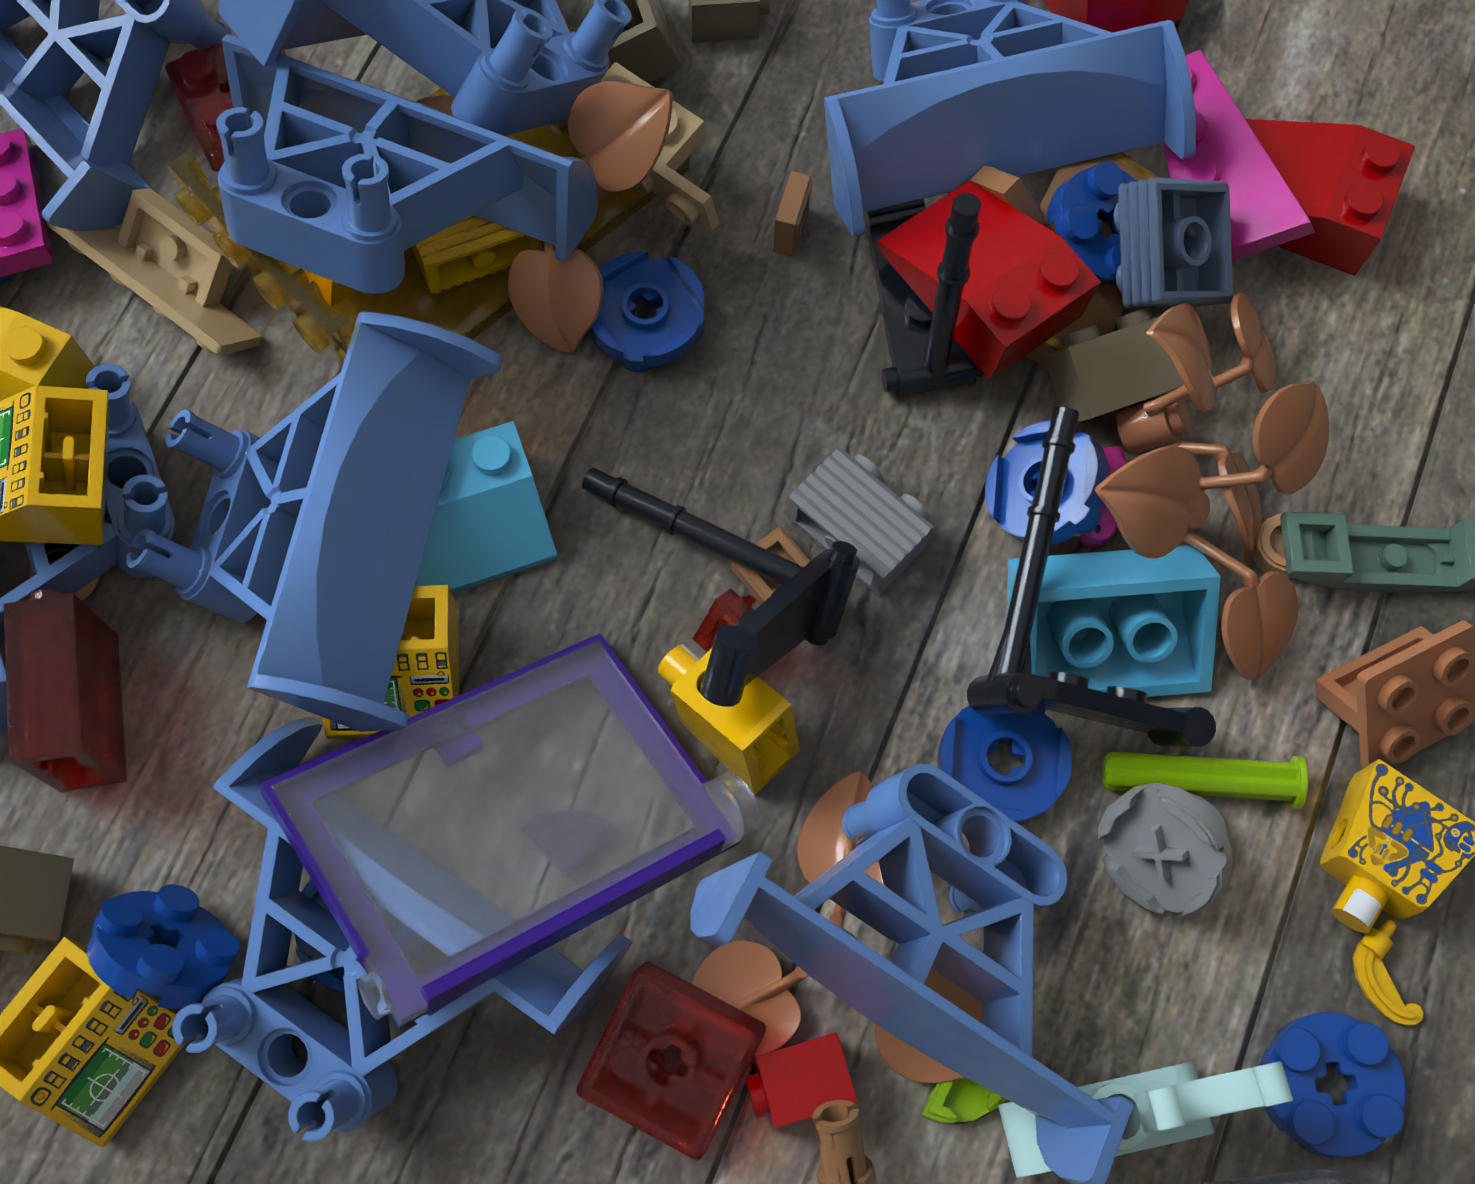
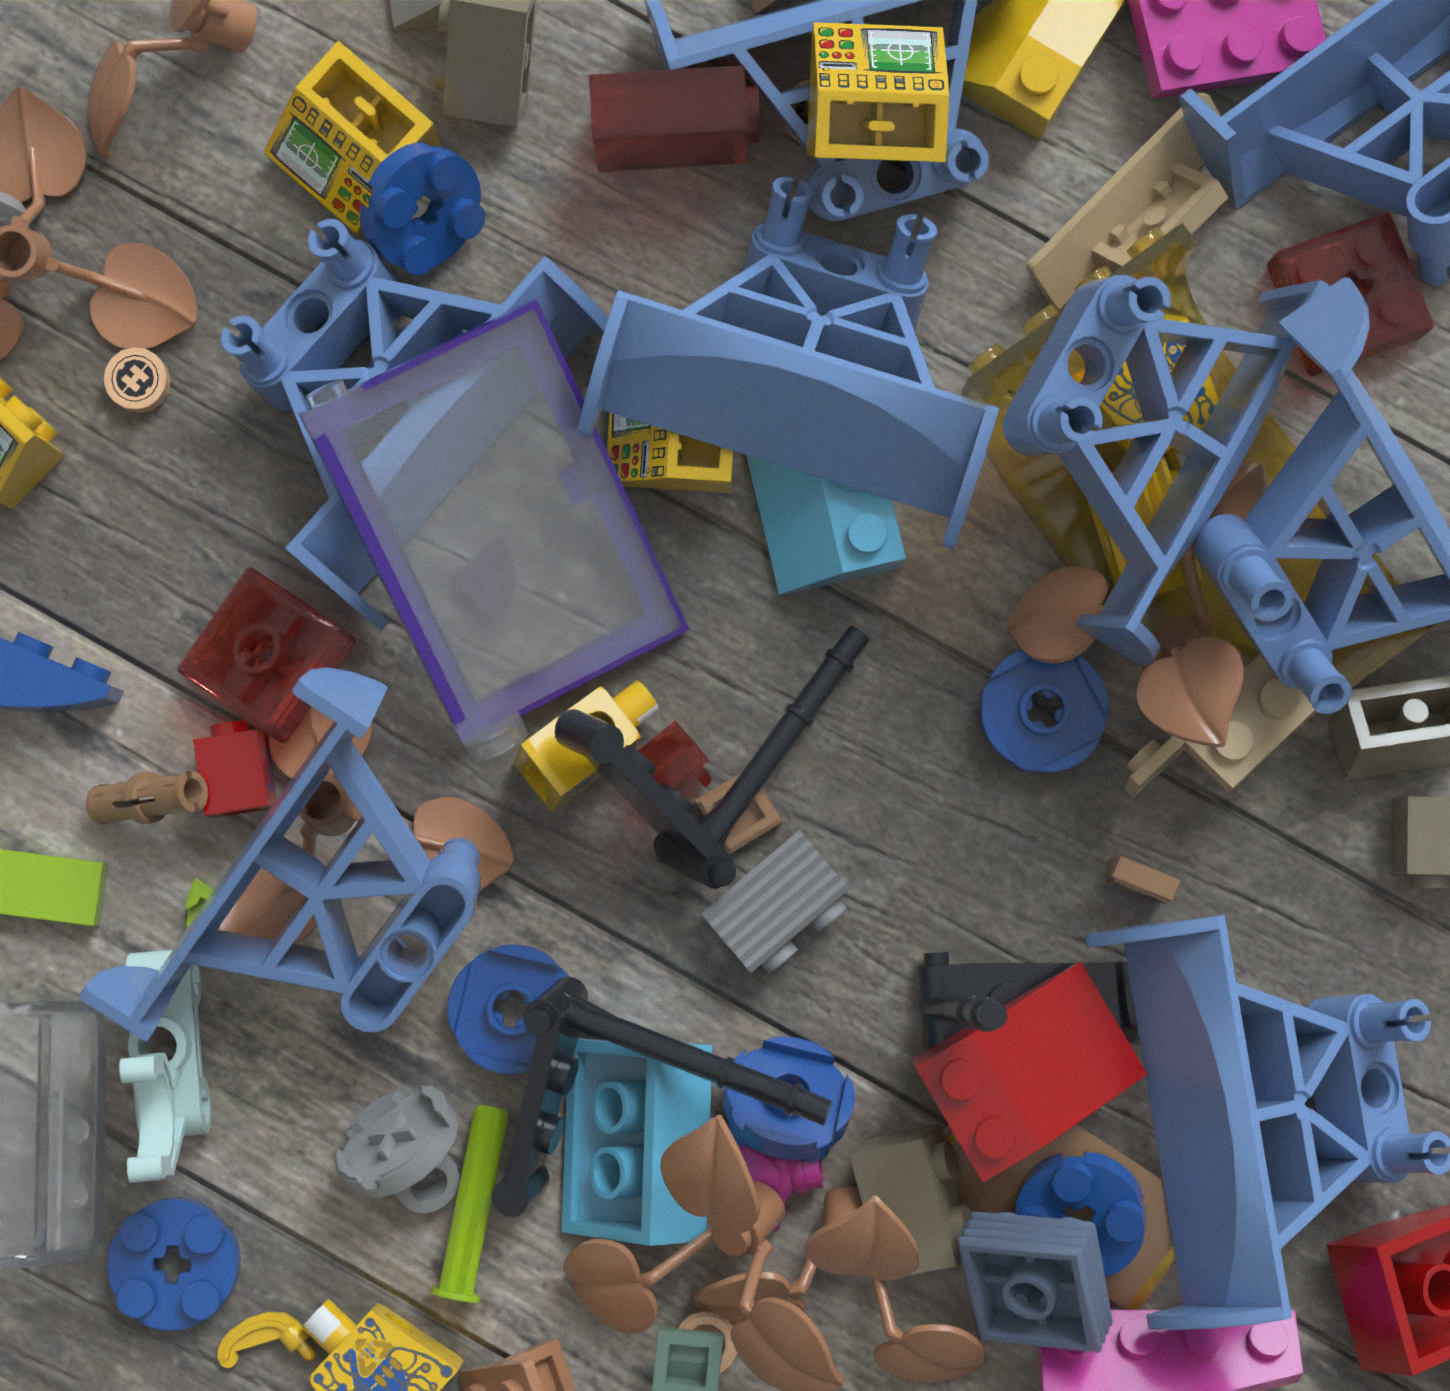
camera: 100 degrees right, 15 degrees up
(1009, 189) = (1120, 1113): medium nougat tile -> none

